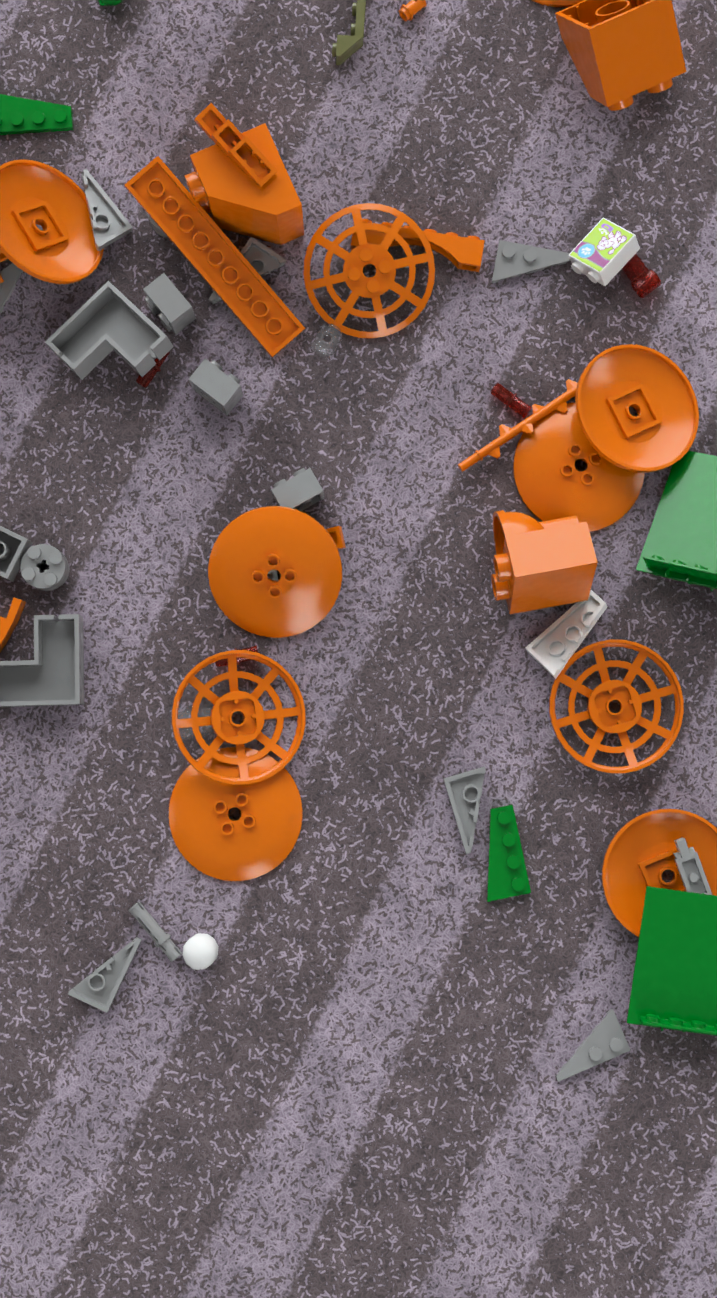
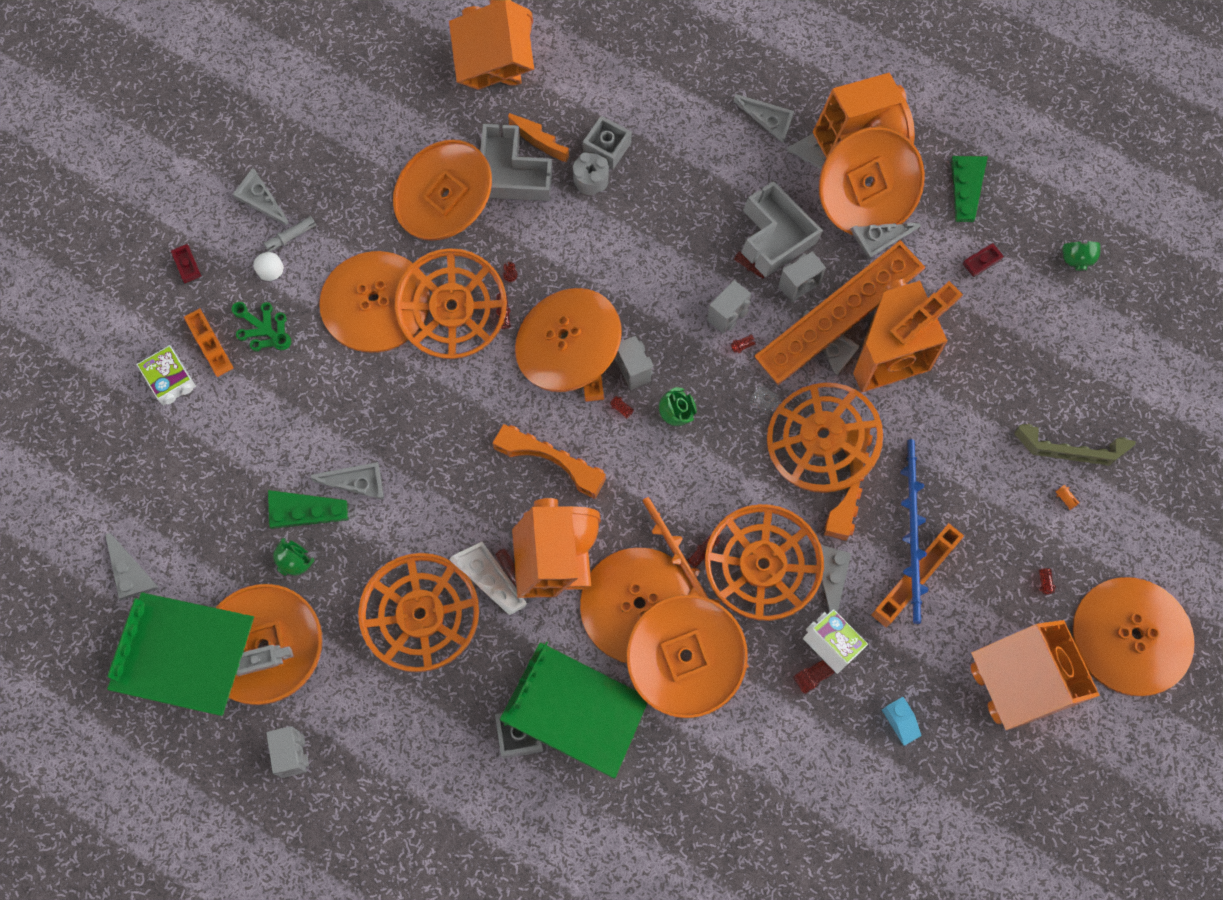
camera: 100 degrees right, 15 degrees down
(78, 775) = (425, 178): none -> orange dish
(125, 97) = (983, 260): none -> dark red plate
(193, 653) = (508, 270): none -> clear red pin
(205, 1054) = (186, 263): none -> dark red plate
(256, 370) = (744, 343): none -> clear red pin
(284, 942) = (264, 328): none -> green plant
(308, 1006) = (208, 342): none -> orange slope
(348, 439) = (677, 407): none -> green cylinder
(348, 505) = (618, 404): none -> clear red pin
(357, 1048) = (166, 375): none -> brick
(440, 539) = (514, 443): none -> orange arch
(477, 173) = (912, 537): none -> blue plant
(510, 31) = (1047, 586): none -> clear red pin
(526, 320) = (772, 554): none -> orange dish
(548, 188) = (902, 592): none -> orange arch
(549, 615) = (507, 564): none -> clear red axle
(568, 859) = (291, 558): none -> green cylinder
(676, 182) = (902, 720): none -> medium azure slope

